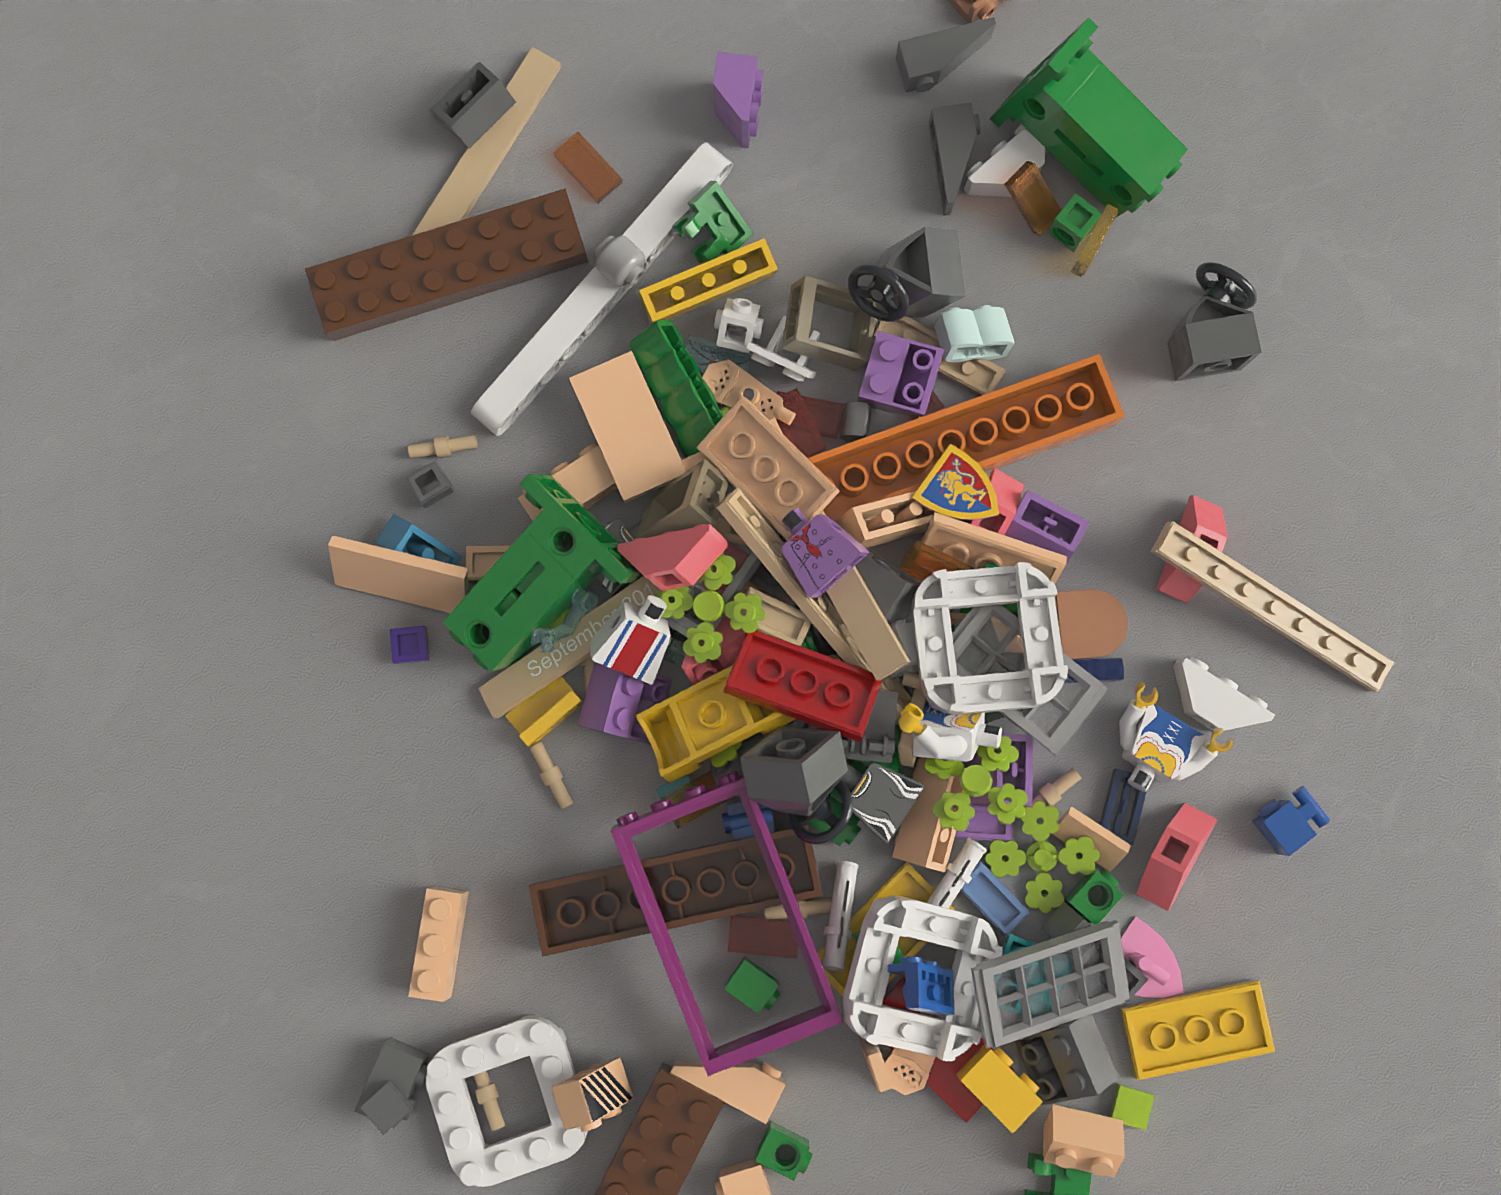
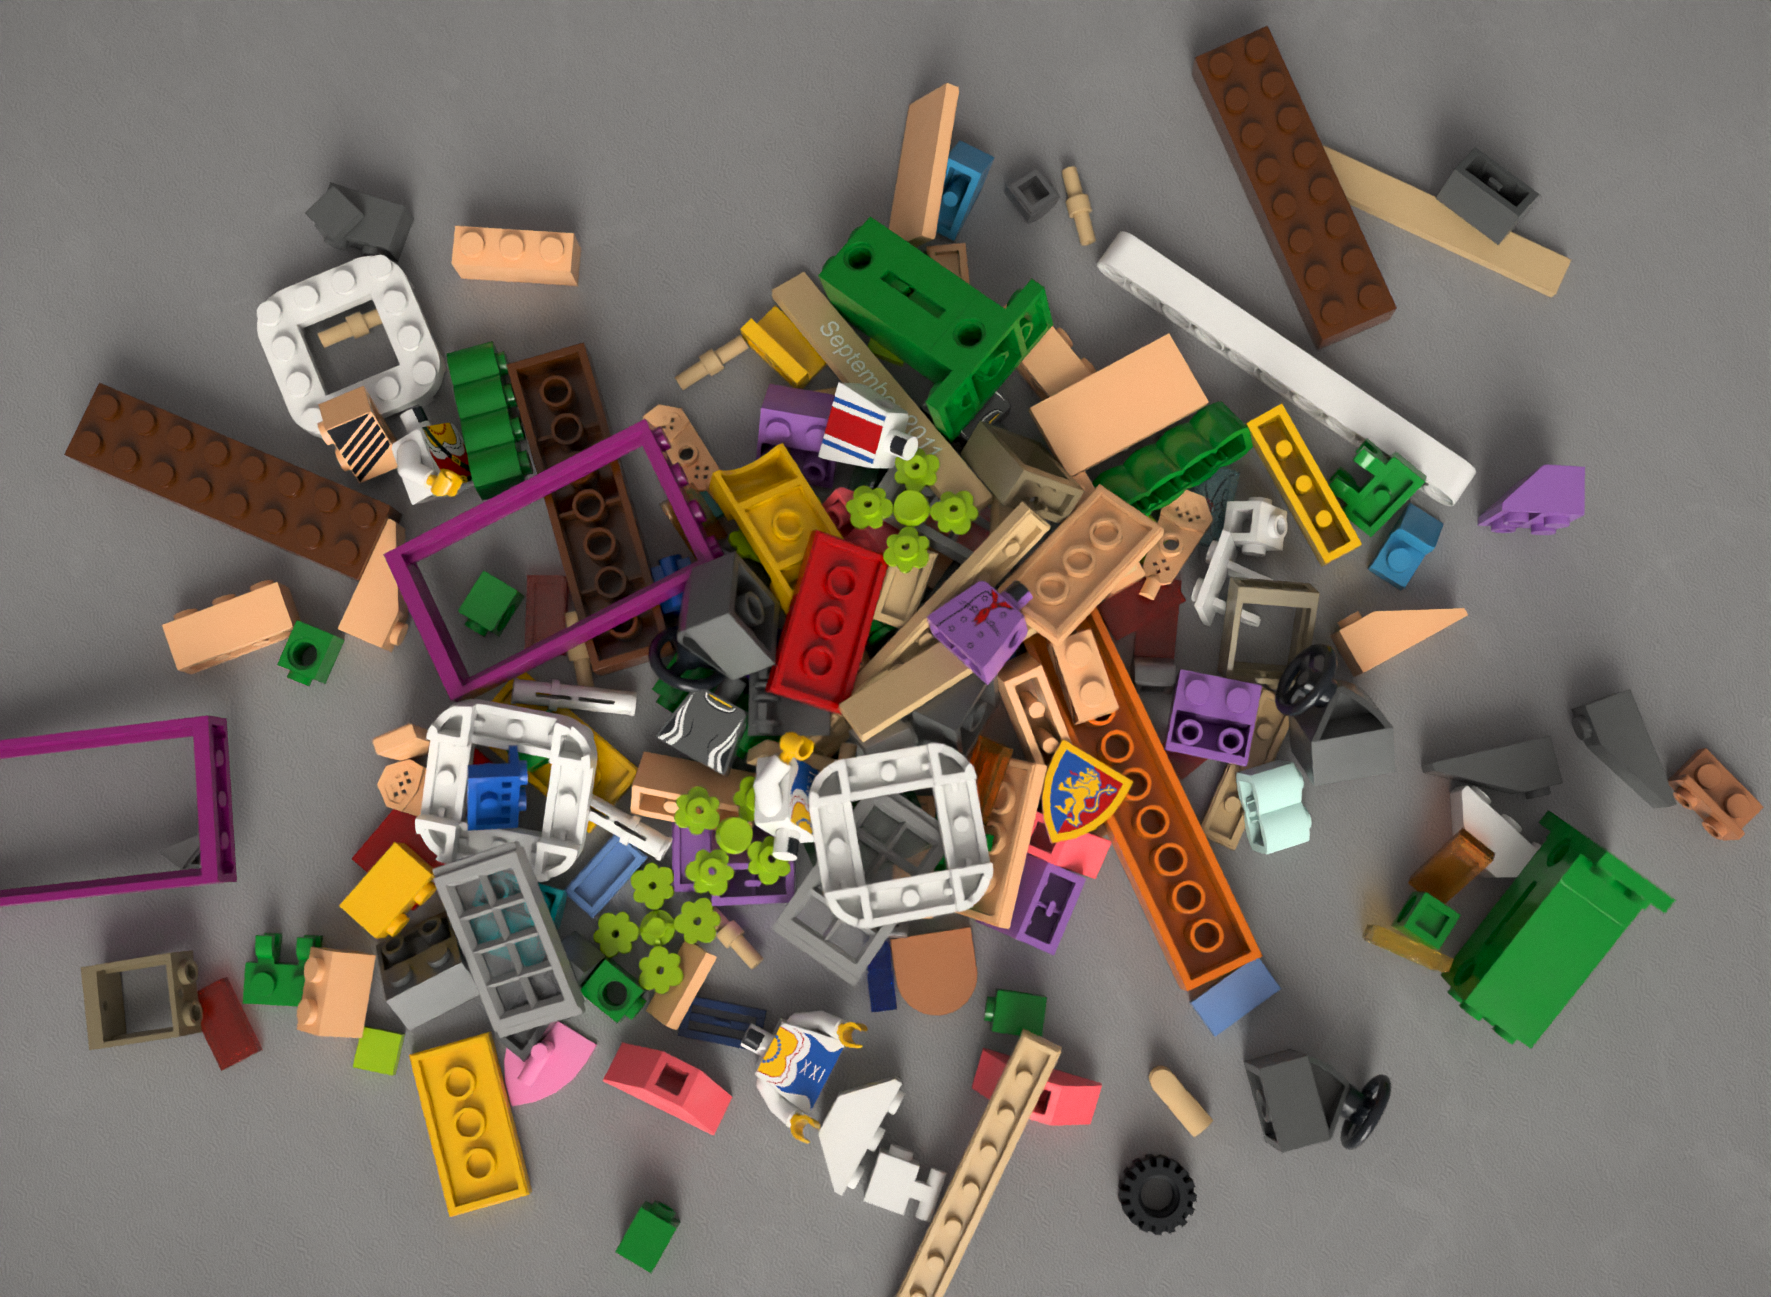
camera: 85 degrees right, 0 degrees up
(409, 644) = (847, 191): dark purple plate -> none
(582, 603) = (862, 335): clear light blue arm -> none
(588, 167) = (1431, 339): clear orange tile -> none
(589, 977) = (488, 419): none -> green brick
(616, 805) = (684, 437): none -> light nougat piece
(619, 261) = (1315, 378): light grey head -> none
(625, 1022) = (431, 458): none -> torso
(675, 557) = (963, 463): coral slope -> none
(763, 207) = (1406, 546): none -> dark azure slope
(839, 235) = (1384, 634): none -> light nougat slope
(864, 474) = (1083, 677): none -> light nougat brick
(1127, 382) = (1234, 996): none -> medium blue tile
(1129, 559) = (1015, 1011): none -> green brick
(1206, 434) = (1179, 1100): none -> tan bar
(1261, 669) = (895, 1181): none -> white brick
(1287, 825) = (713, 1218): blue brick -> none
(1294, 445) = (1179, 1206): none -> black tyre
(1298, 880) = (649, 1235): none -> green brick

